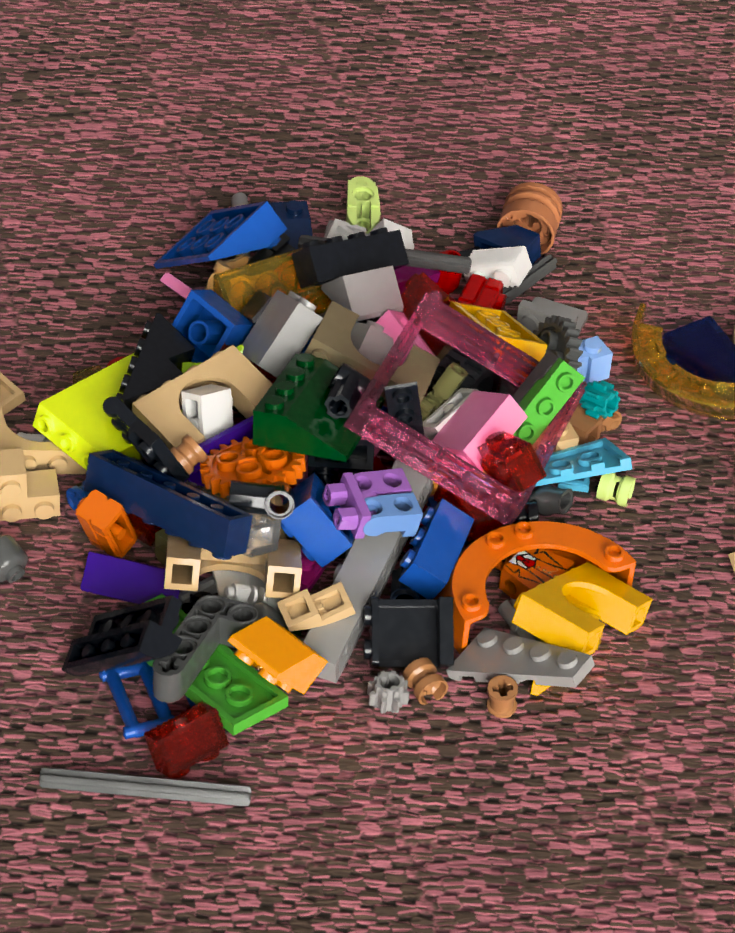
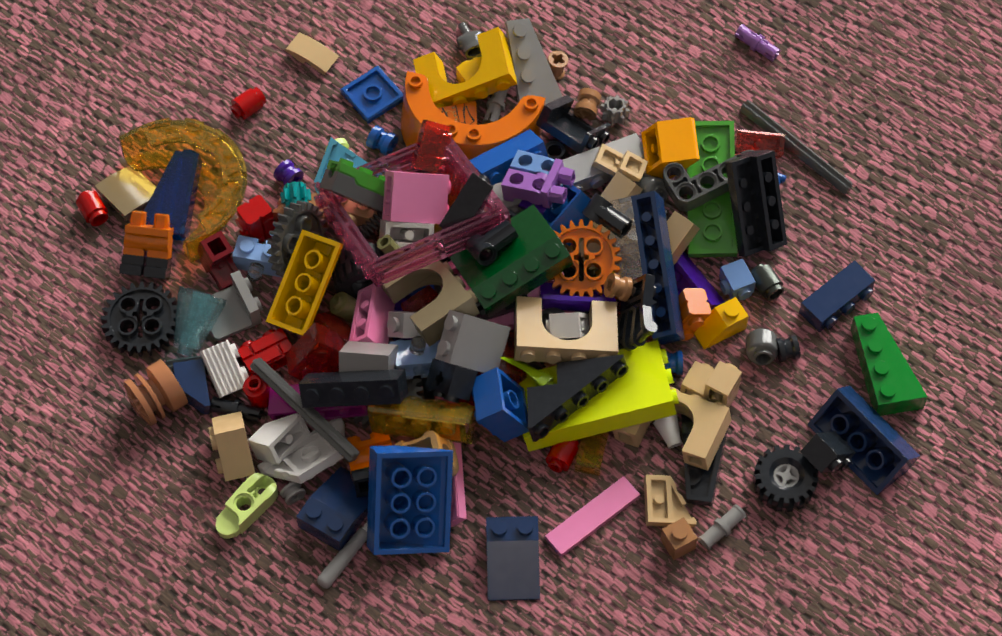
camera: 135 degrees left, 20 degrees up
(48, 353) = (592, 516): none -> bright pink tile
(51, 621) = (767, 281): none -> pearl dark grey brick
(62, 560) = (722, 323): none -> yellow slope
(83, 601) = (737, 280): none -> medium blue brick
(95, 288) = (513, 558): none -> dark blue slope
(301, 875) = (757, 42): none -> medium lavender pin
(429, 221) = (231, 441): none -> tan brick
(574, 283) = (195, 319): none -> clear light blue cone
(597, 520) = (382, 140): none -> blue wheel
(614, 330) = (216, 259): none -> dark red brick
(616, 366) = (255, 219): none -> red brick
(617, 273) = (118, 319): none -> black gear
(622, 670) = (468, 41): none -> dark grey piece
(641, 443) = (288, 173): none -> dark purple wheel
(661, 566) = (372, 94): none -> blue tile
(679, 307) = (147, 247): none -> orange hips

